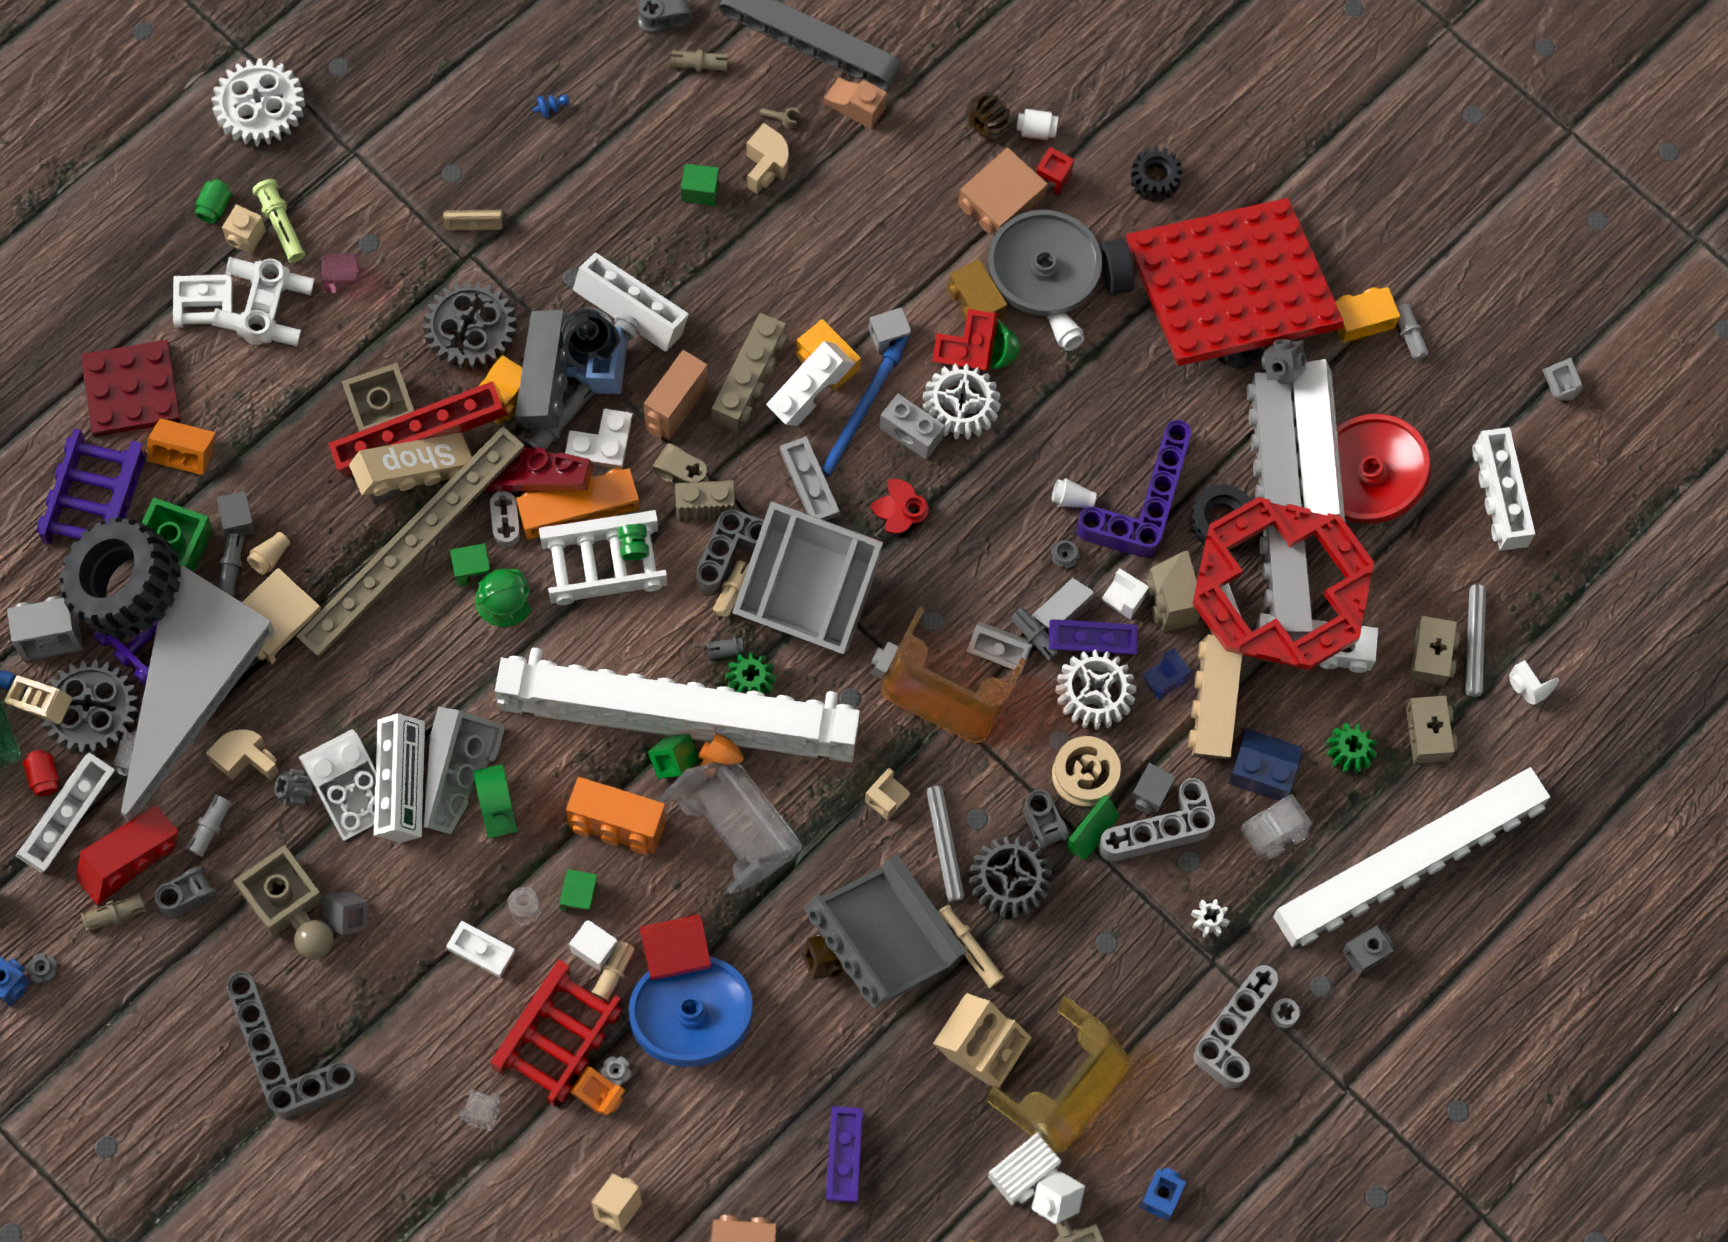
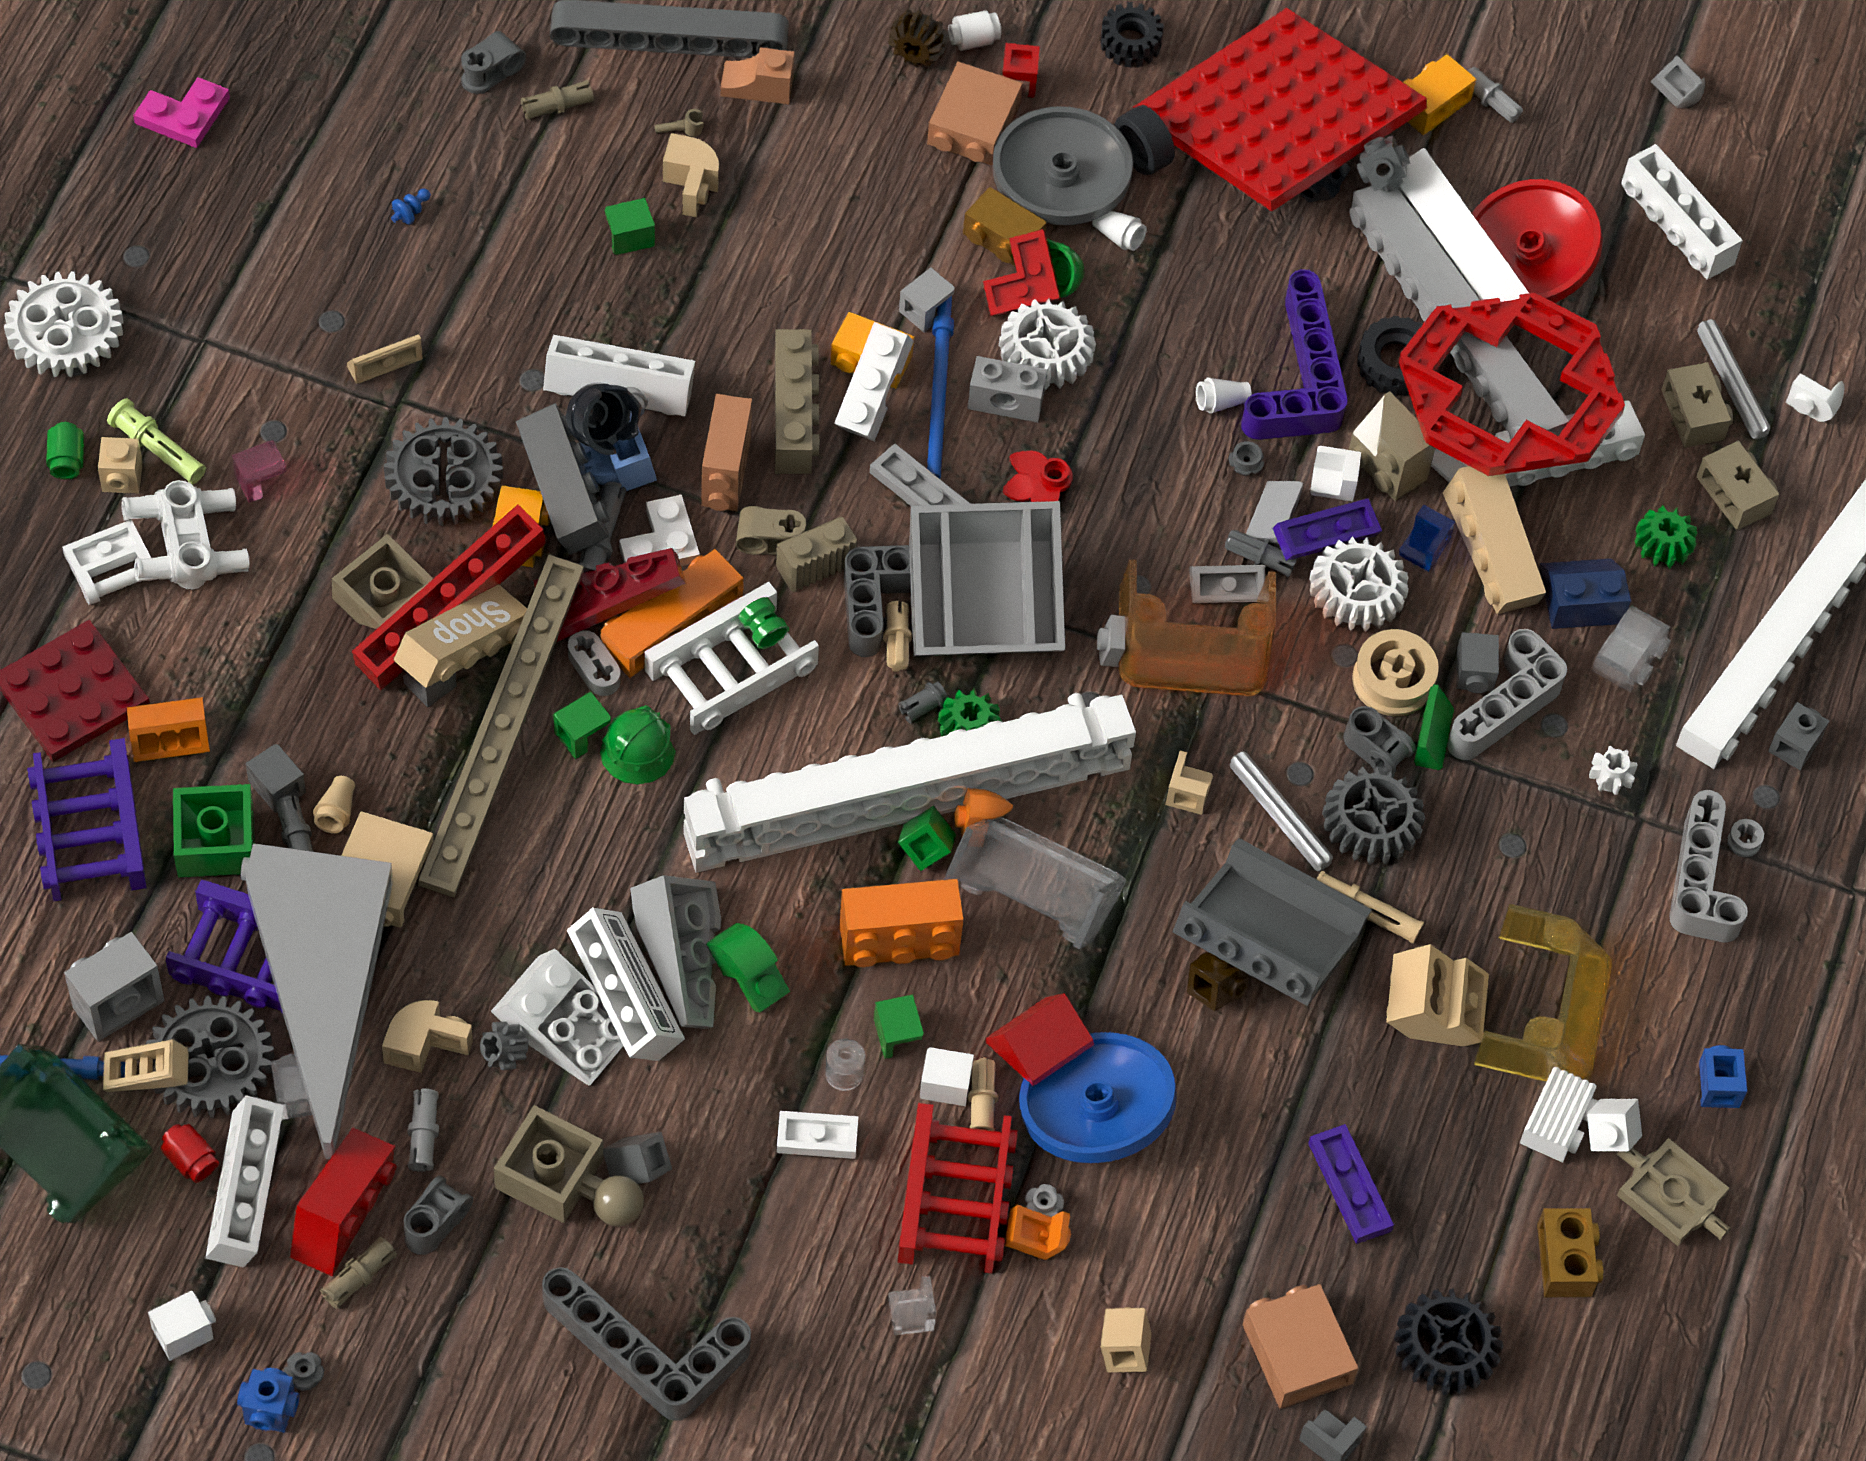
camera: 25 degrees left, 10 degrees down
(95, 561) = (156, 855): black tyre -> none

